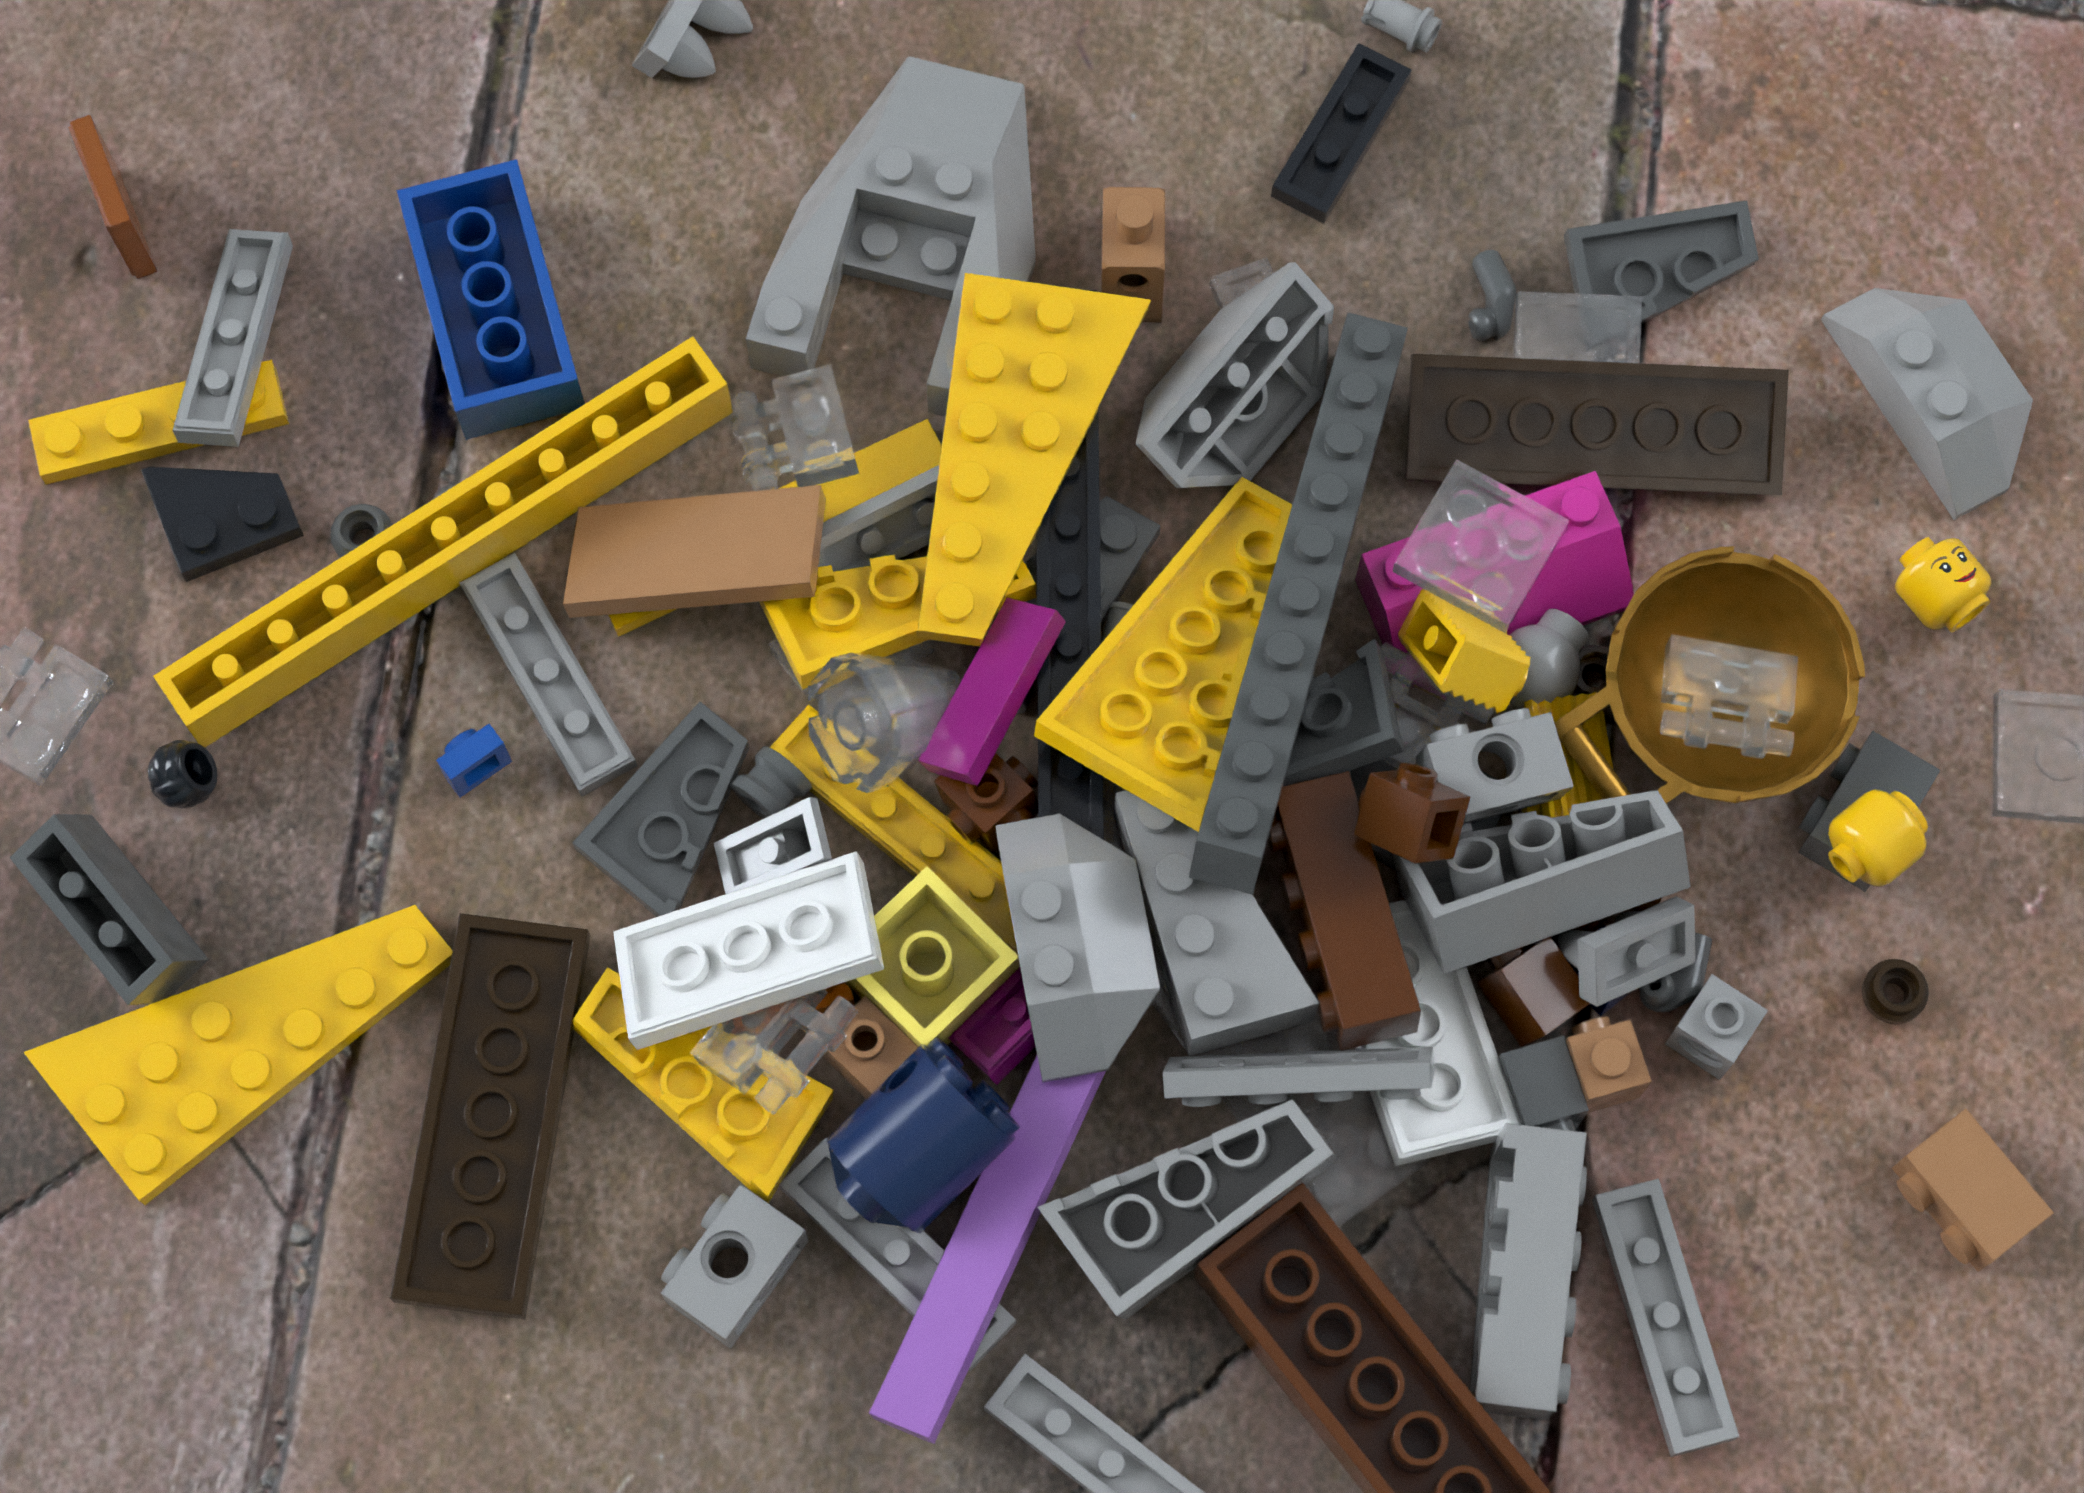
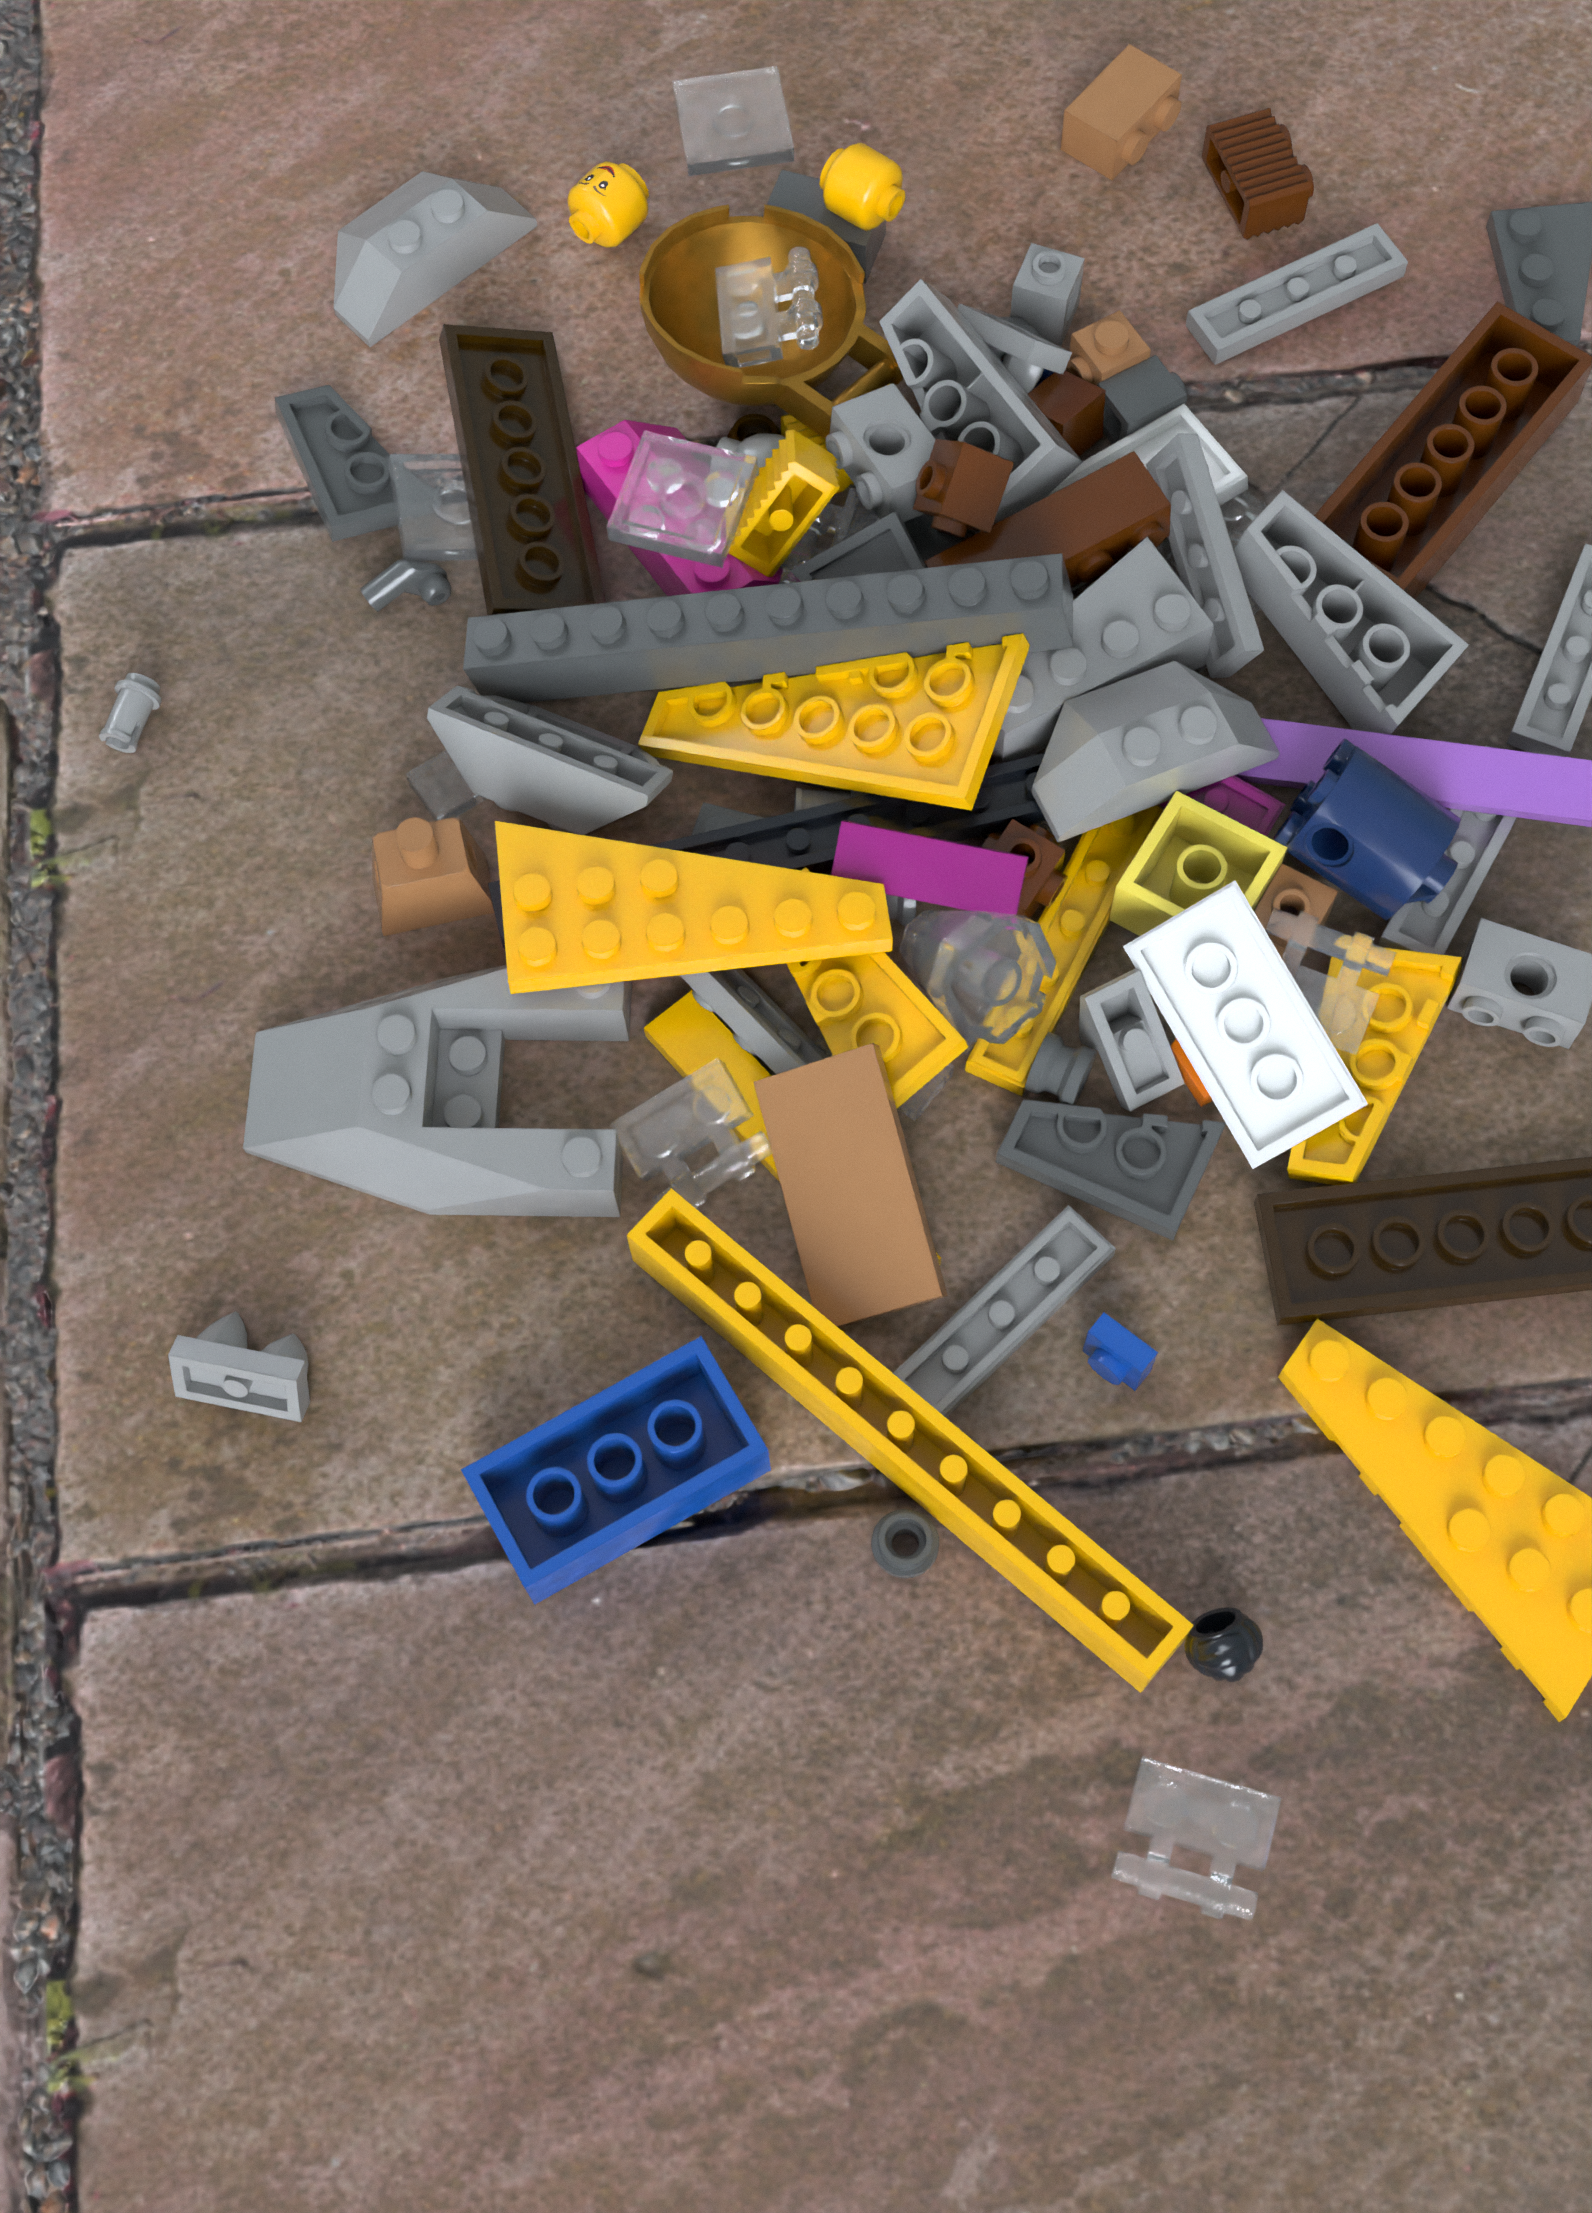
camera: 100 degrees left, 5 degrees down
(109, 908) = (1398, 1663): dark grey brick -> none
(112, 197) = (589, 1925): dark orange tile -> none
(134, 428) = (832, 1810): yellow plate -> none
(220, 515) = (922, 1705): black wing -> none
(233, 338) = (721, 1741): light grey tile -> none
(1341, 133) = (261, 737): black plate -> none
(1526, 1271) = (1298, 379): light grey wedge -> none
(1849, 1323) = (1257, 172): none -> reddish brown brick
(1905, 976) = (969, 190): dark brown plate -> none

